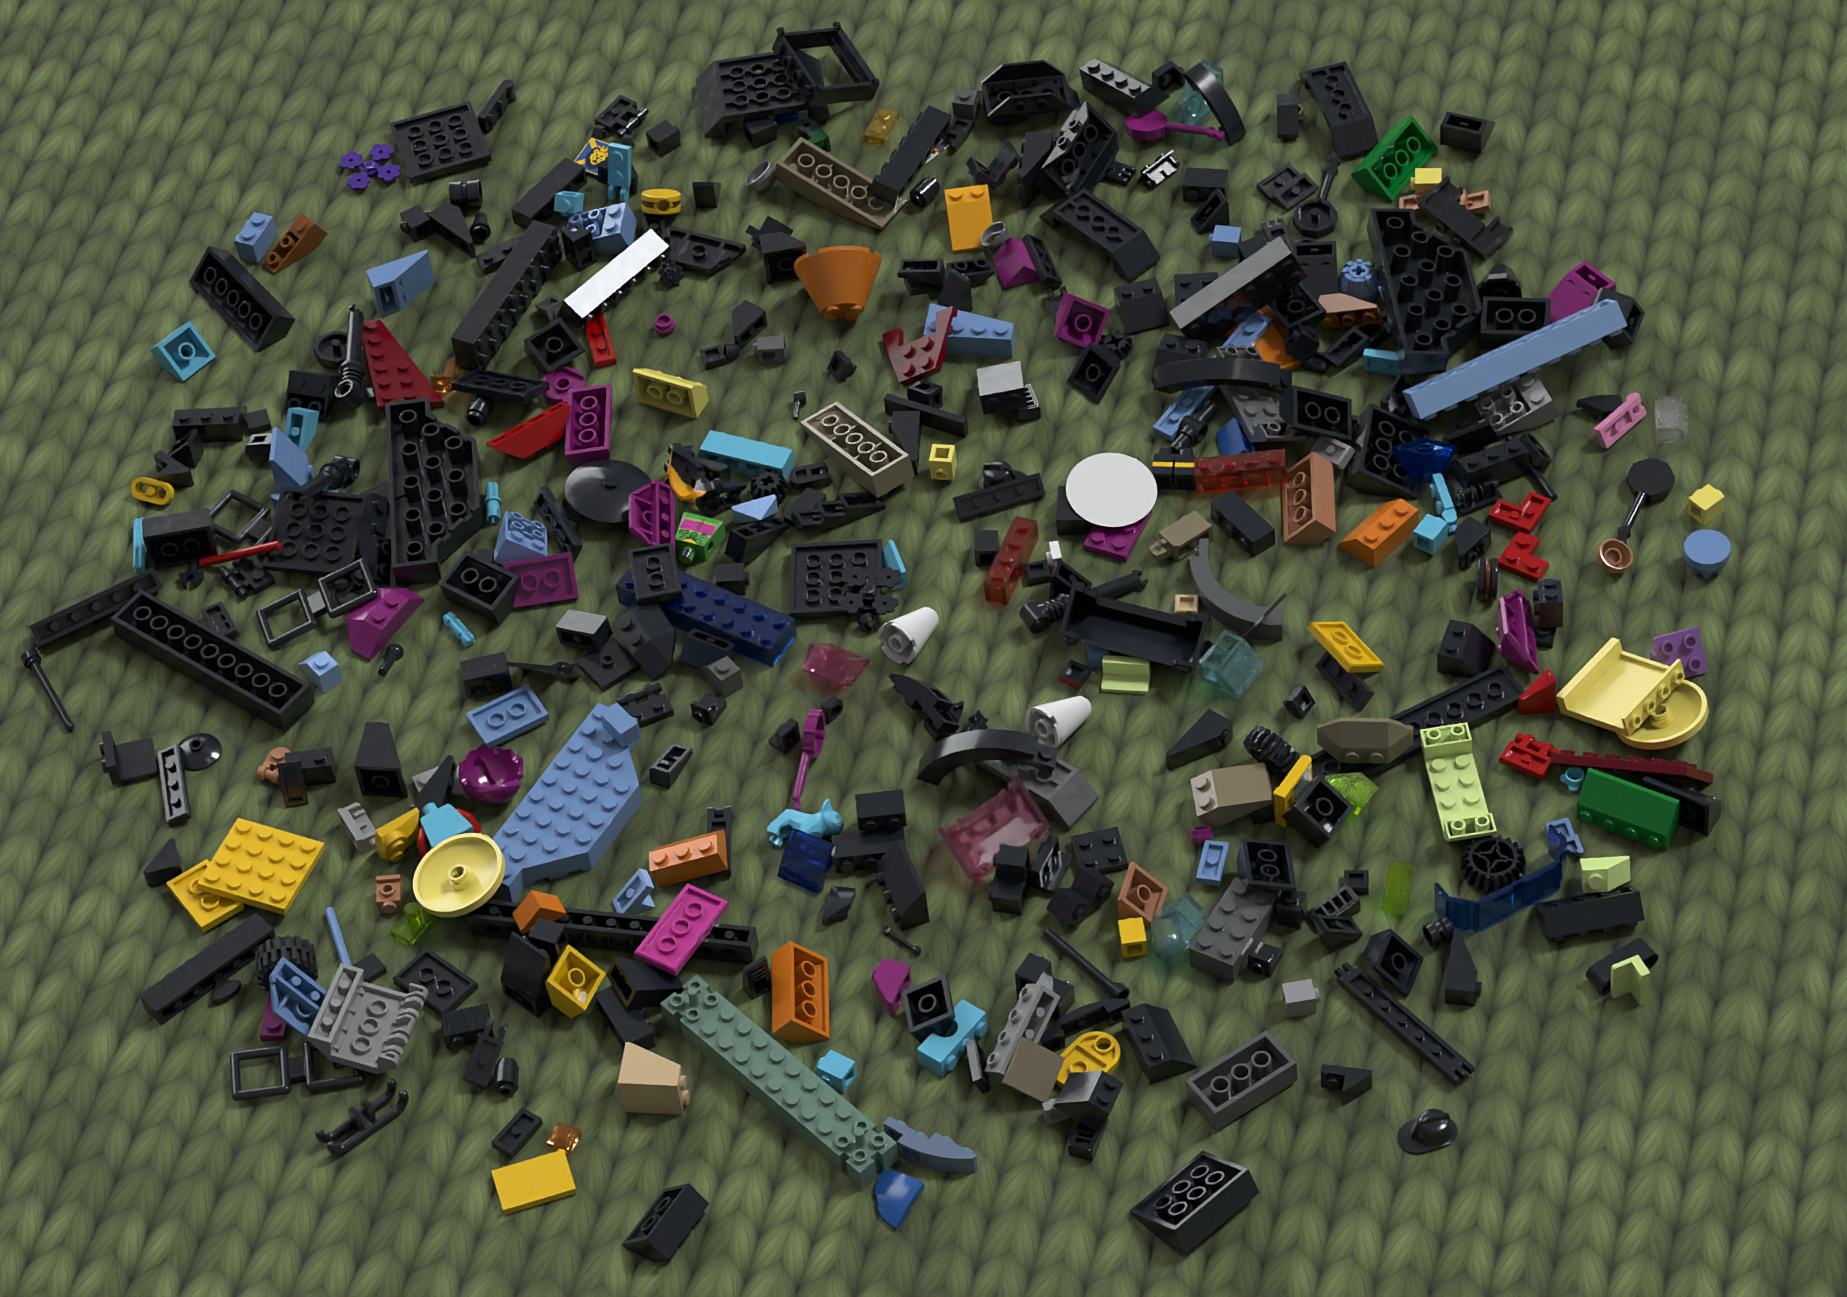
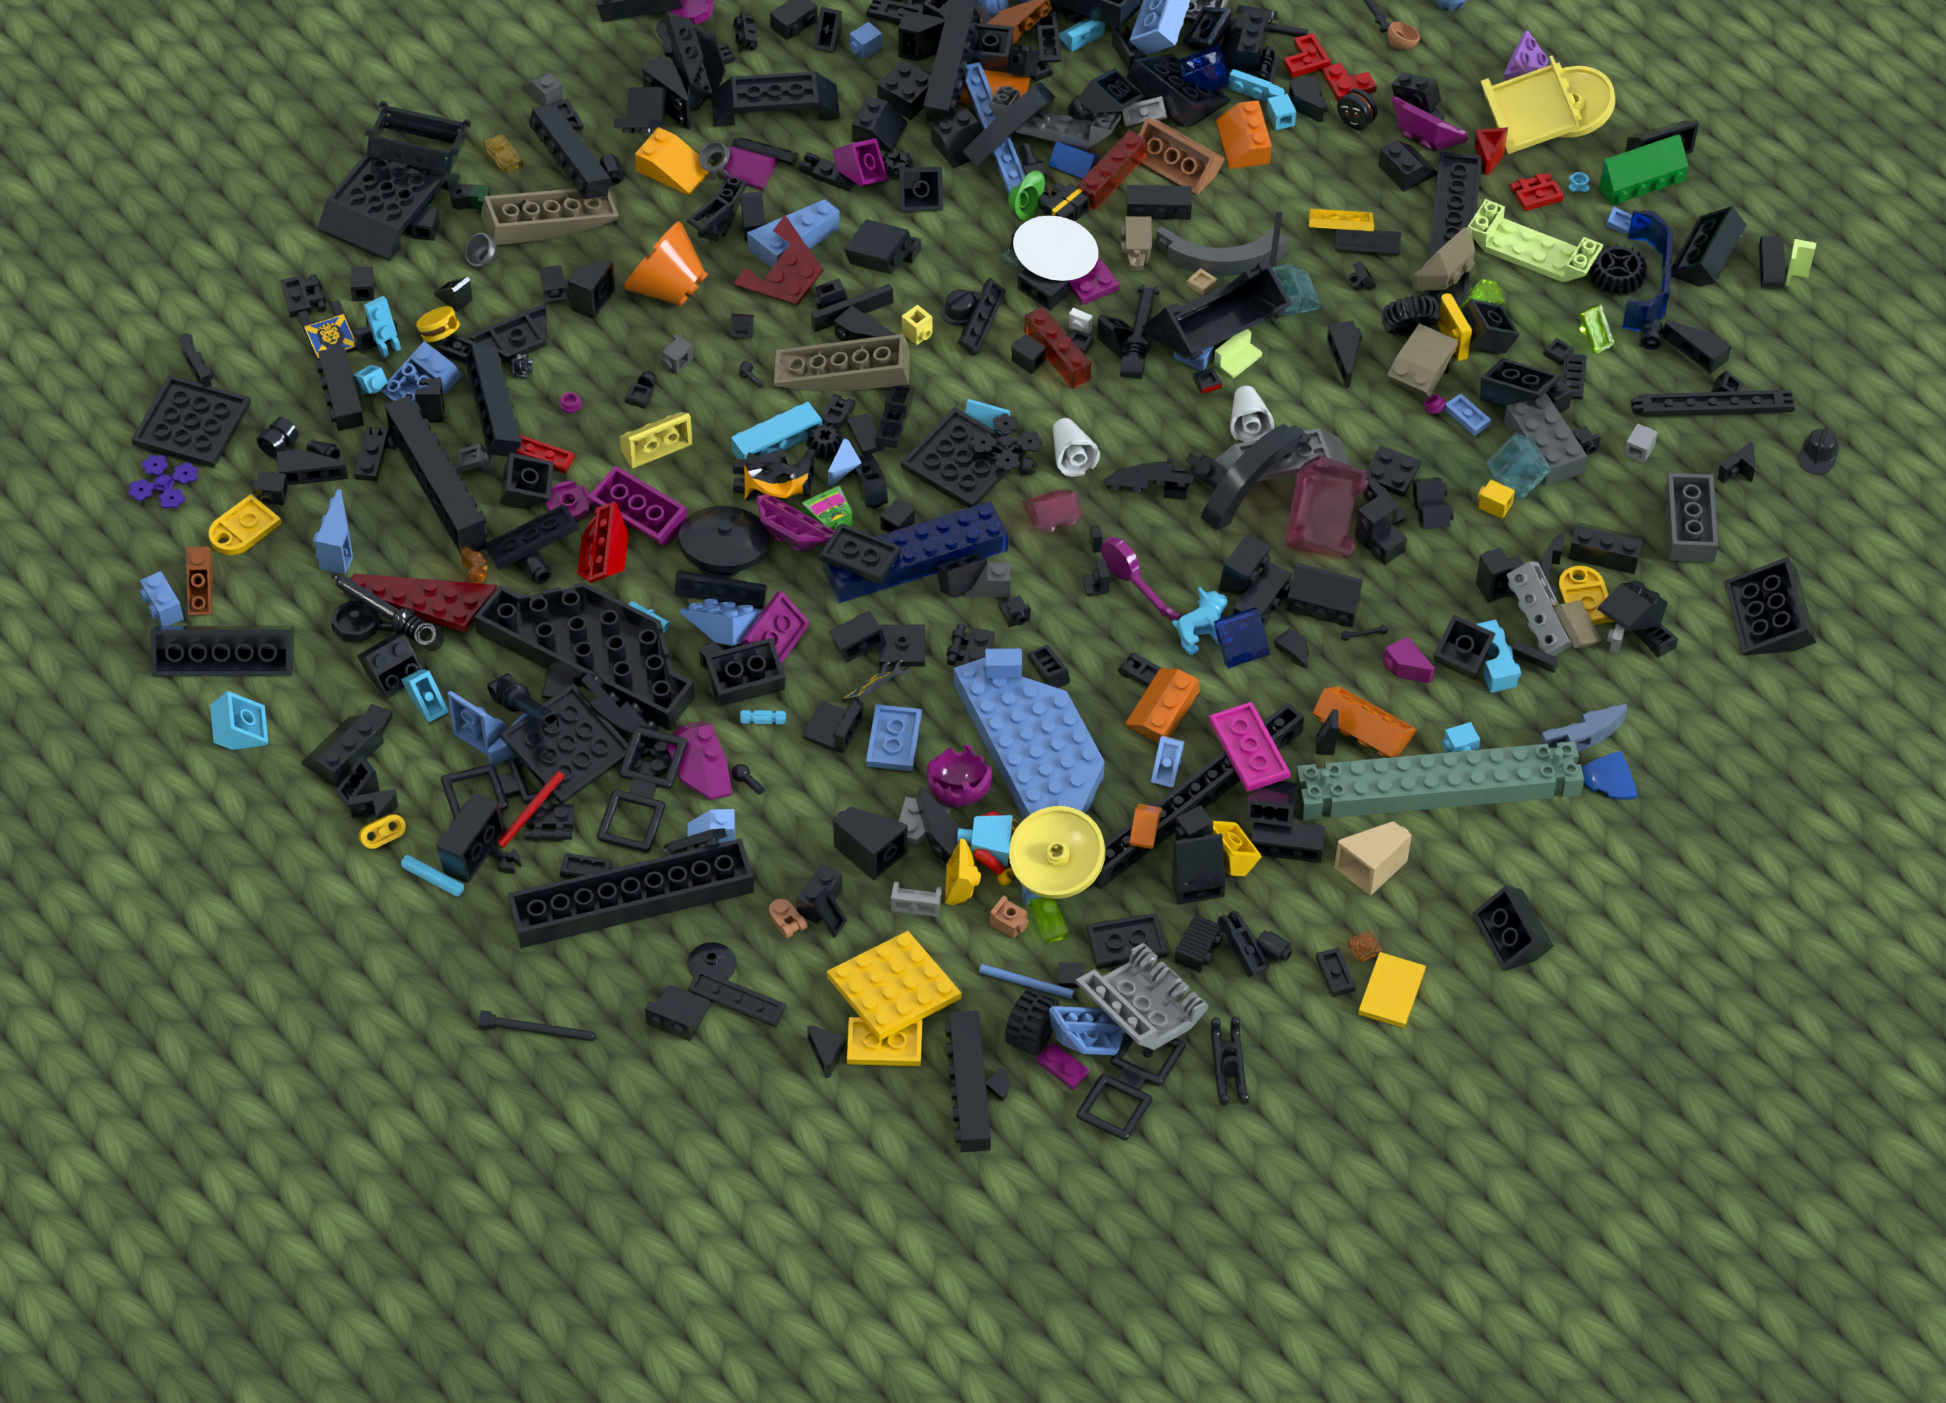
camera: 60 degrees left, 5 degrees up
(92, 607) = (480, 942): black brick -> none
(259, 447) = (418, 729): black brick -> none
(290, 664) = (692, 842): none -> black hinge
(369, 234) = (243, 526): none -> yellow tile
(648, 637) = (905, 600): black wedge -> none
(747, 322) = (629, 352): black slope -> none
(1025, 90) = (580, 51): black slope -> none
(1114, 989) = (1535, 539): black piece -> none
(1140, 895) = (1460, 474): nougat slope -> none
(1152, 436) = (1025, 196): none -> bright green piece
(1336, 928) = (1599, 389): black slope -> none
(1393, 960) = (1653, 373): black slope -> none
(1440, 1022) = (1727, 383): none -> black slope
(1604, 873) = (1683, 220): yellowish green slope -> none
(1634, 765) = (1609, 142): dark red wing -> none

